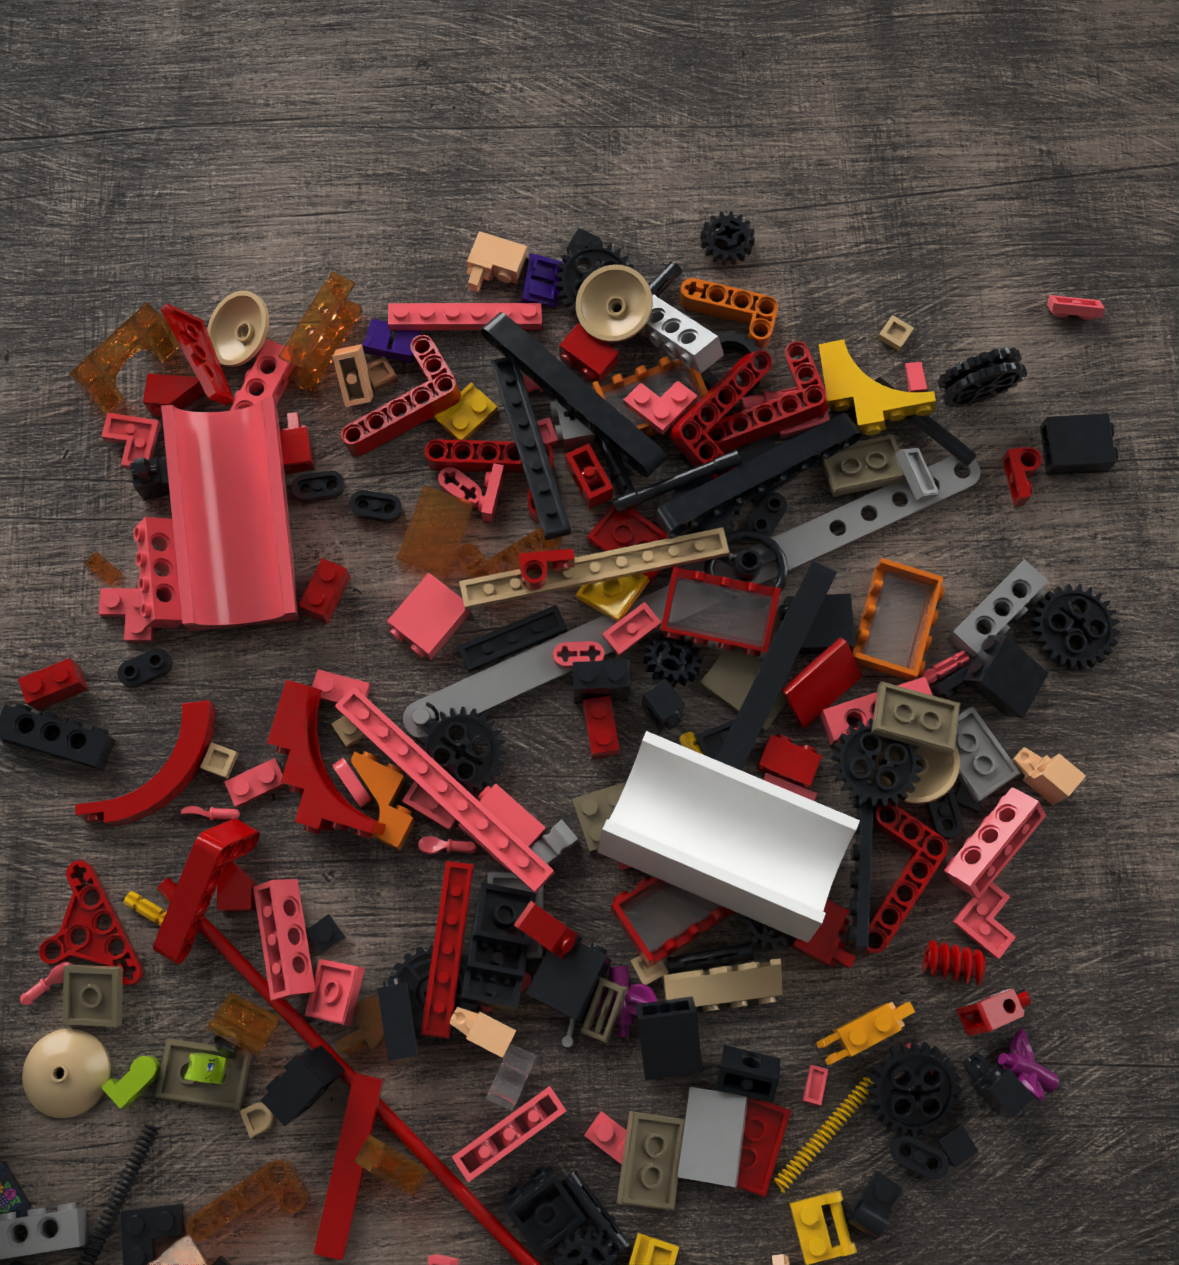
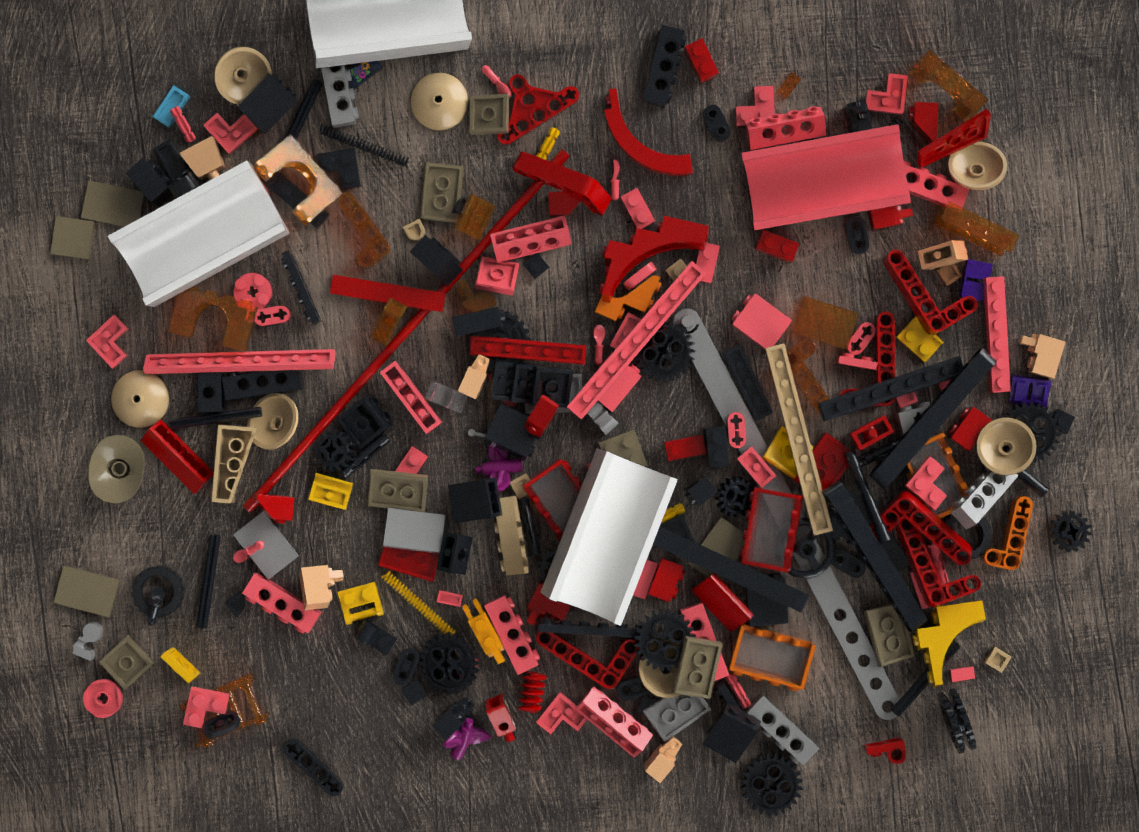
camera: 90 degrees right, 15 degrees up
(141, 1075) = (434, 148): lime leg -> none
(206, 1068) = (444, 195): lime leg -> none
(219, 760) = (652, 182): tan plate -> none
(377, 505) = (843, 278): black plate -> none
(556, 559) = (800, 413): red plate -> none
(613, 987) = (507, 462): dark tan tile -> none
(911, 978) = (520, 663): none -> coral brick
(917, 473) = (882, 672): light grey tile -> none
(1078, 444) = (912, 793): black brick -> none
(1083, 308) = (1023, 795): coral plate -> none

